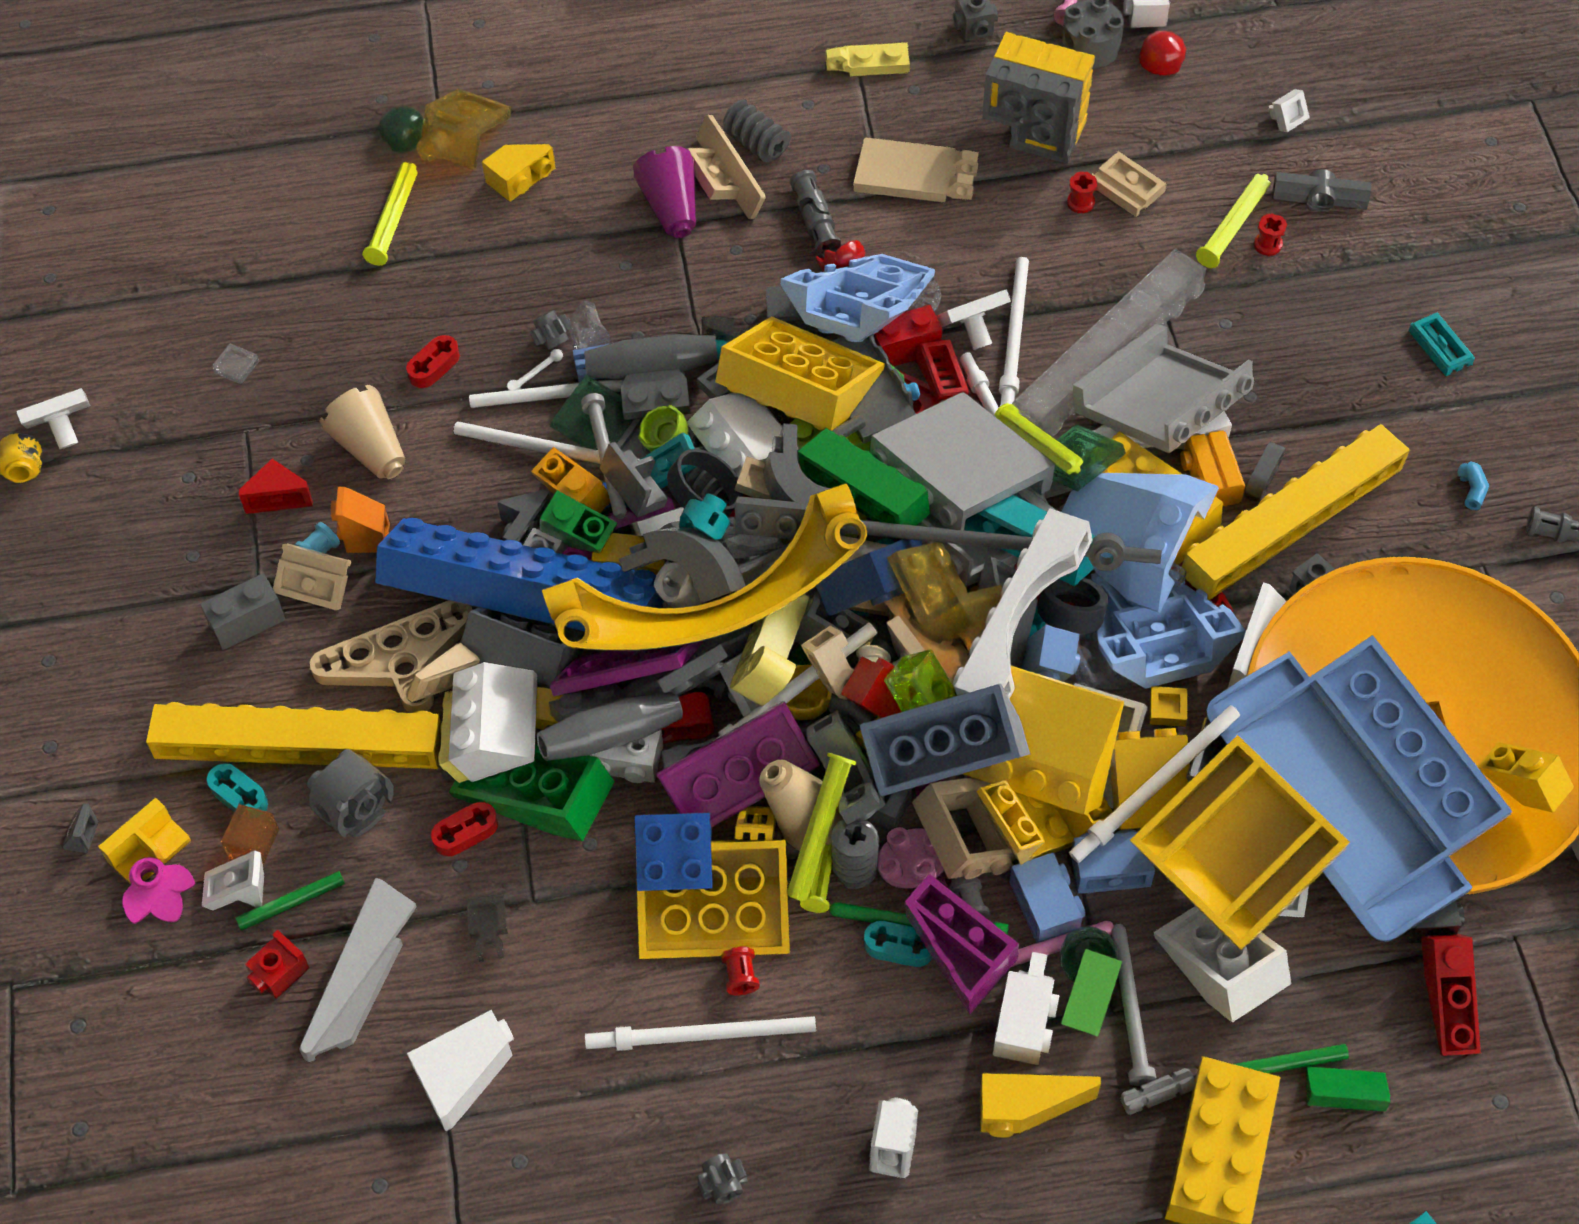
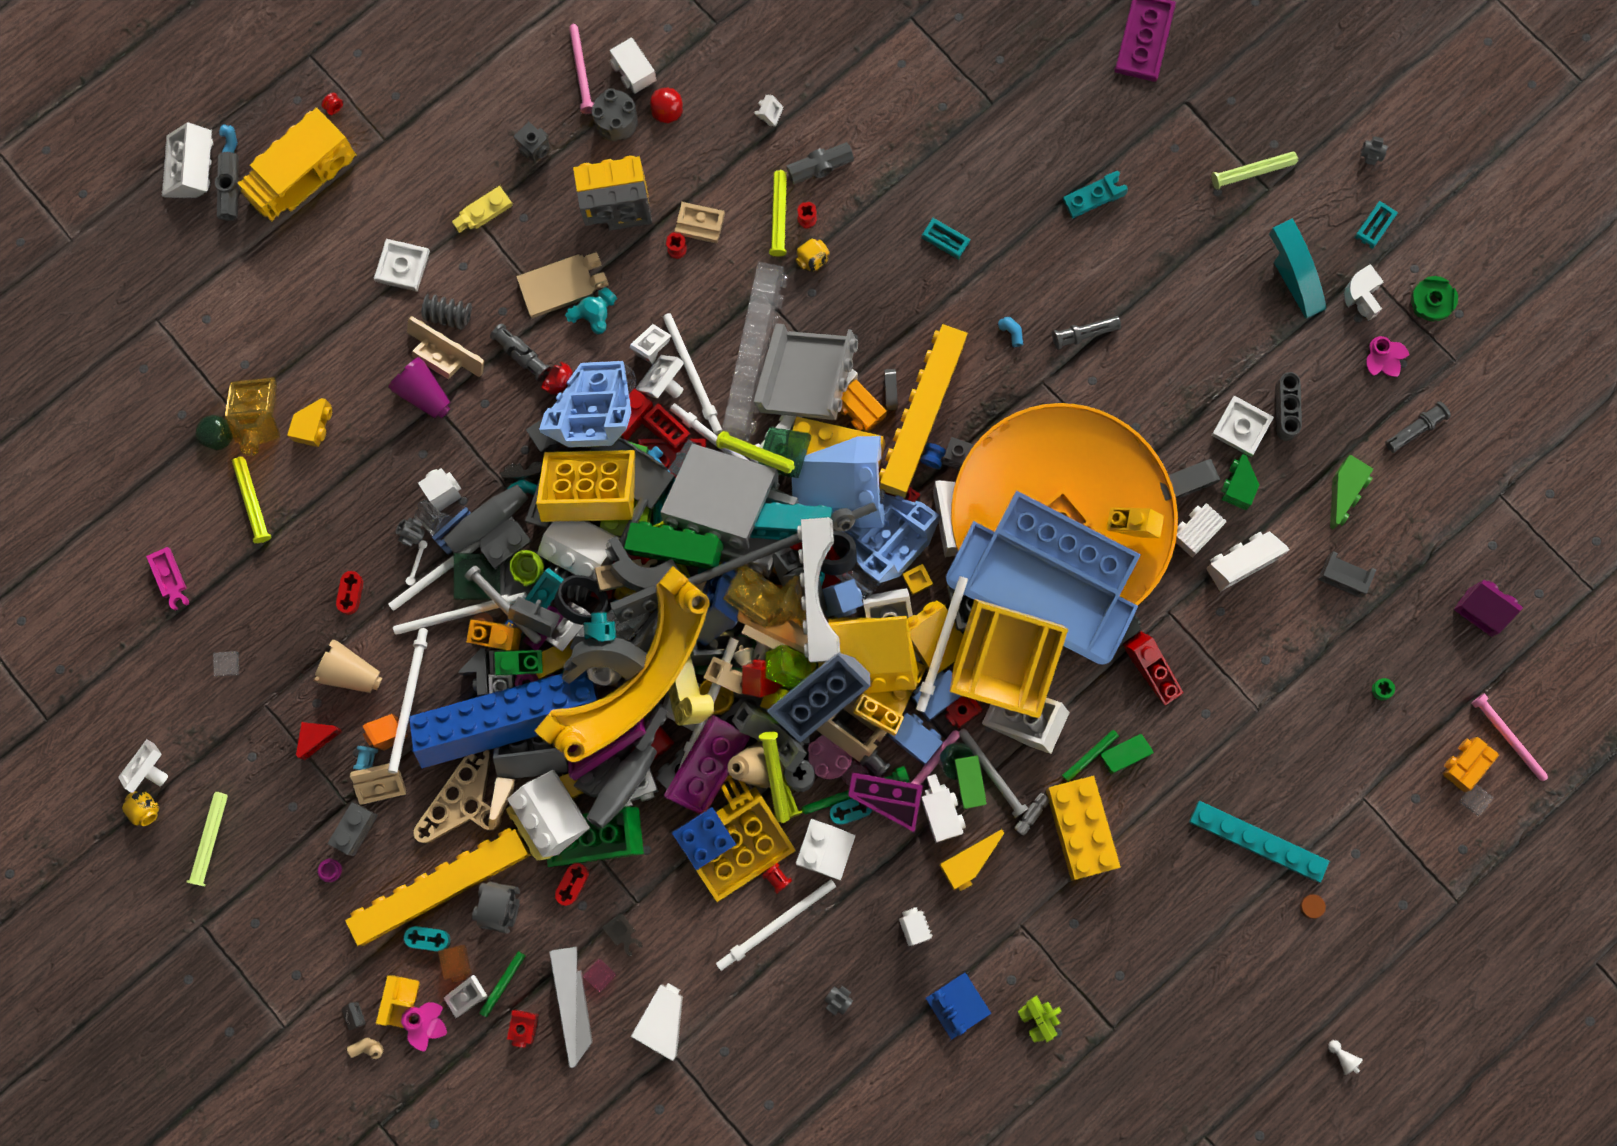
camera: 30 degrees left, 20 degrees up
(67, 535) = (208, 839): none -> yellowish green axle
(68, 877) = (367, 1046): none -> tan arm
(180, 646) = (329, 870): none -> magenta plate
(240, 242) = (168, 576): none -> dark pink plate
(421, 961) = (599, 975): none -> clear pink tile
(474, 457) = (419, 644): none -> white bar
(618, 298) = (440, 488): none -> white brick
(737, 69) = (401, 265): none -> white tile
(830, 970) = (825, 849): none -> white slope
(935, 211) = (593, 310): none -> teal animal
(977, 273) = (650, 343): none -> white slope
(1140, 909) = (958, 719): none -> red brick
(1251, 279) = (812, 255): none -> yellow head
(1277, 570) = (933, 455): none -> blue wheel

